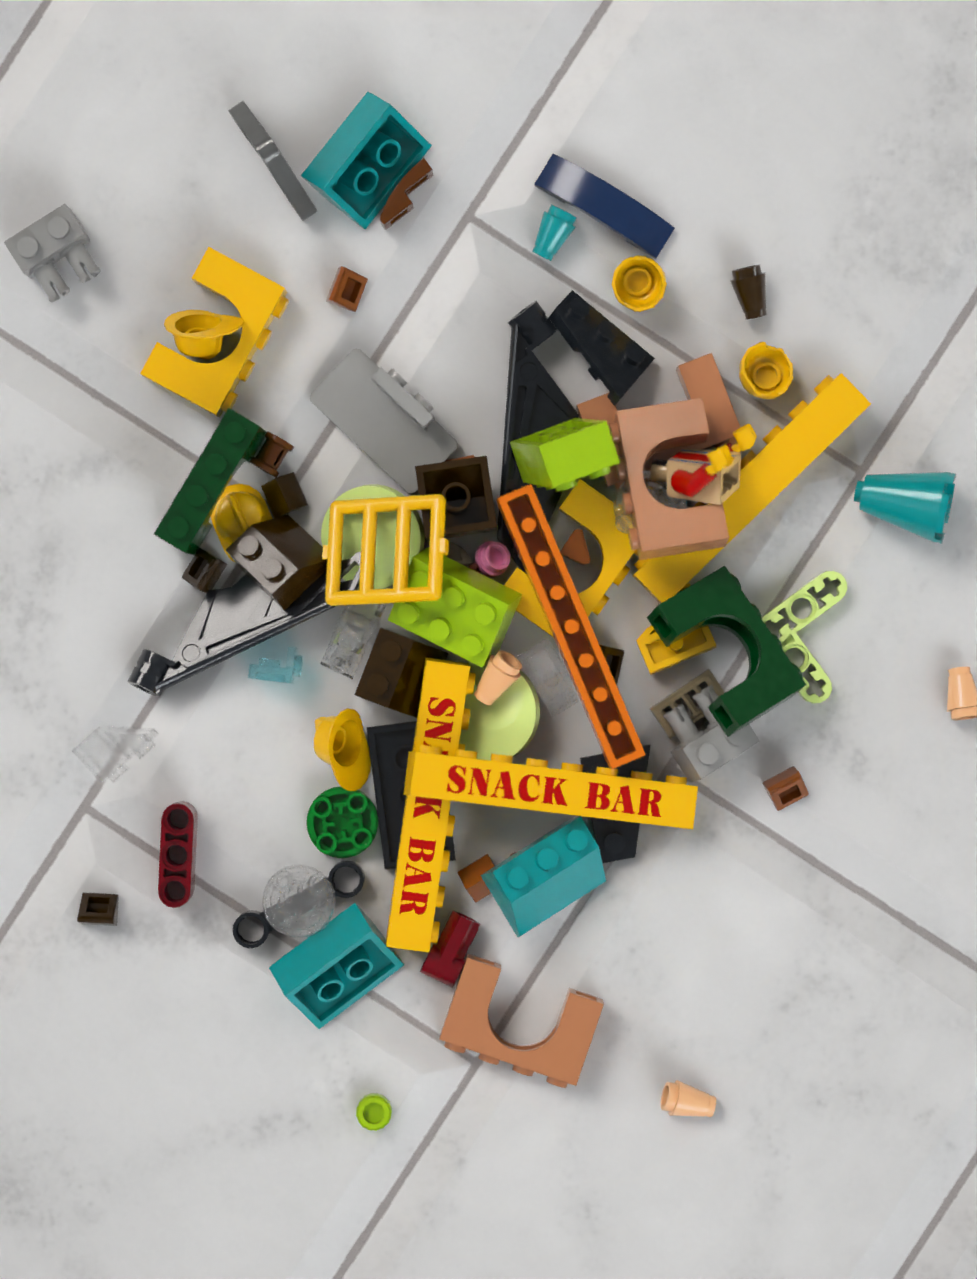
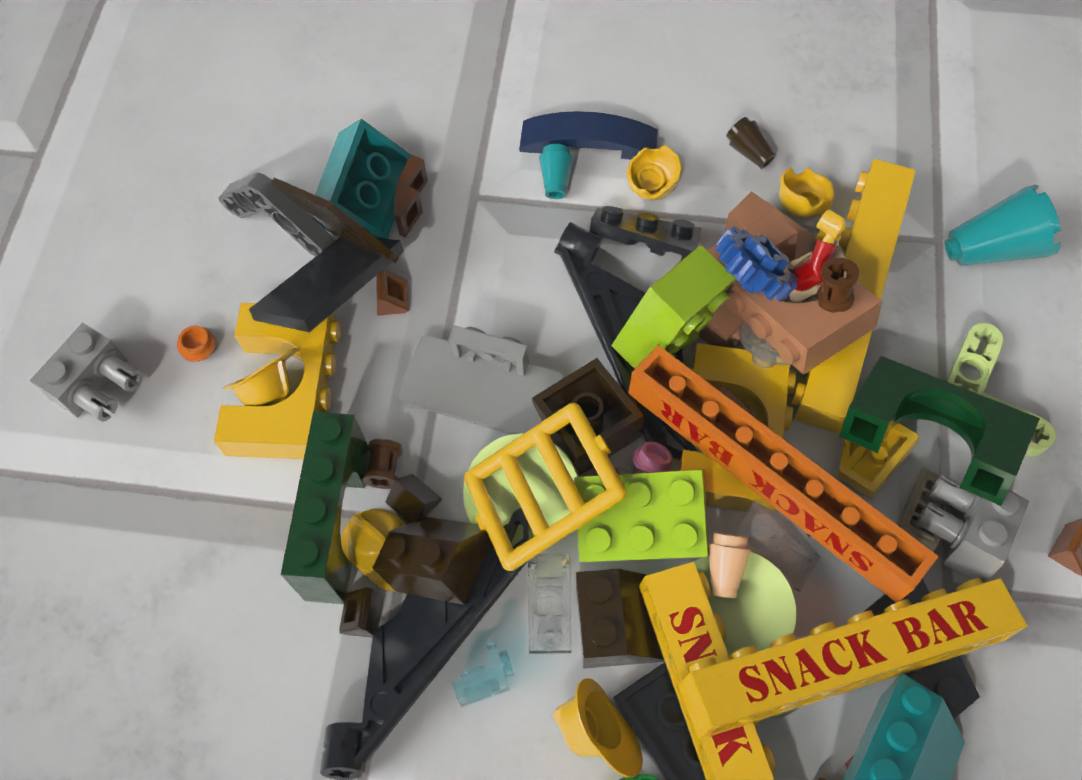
camera: 20 degrees left, 25 degrees down
(156, 257) = (196, 343): none -> orange plate
(292, 264) = (322, 285): none -> black tile
(318, 221) = (334, 219): none -> dark brown piece
(642, 459) = (756, 264): none -> blue gear
(699, 500) = (834, 282): none -> reddish brown bush

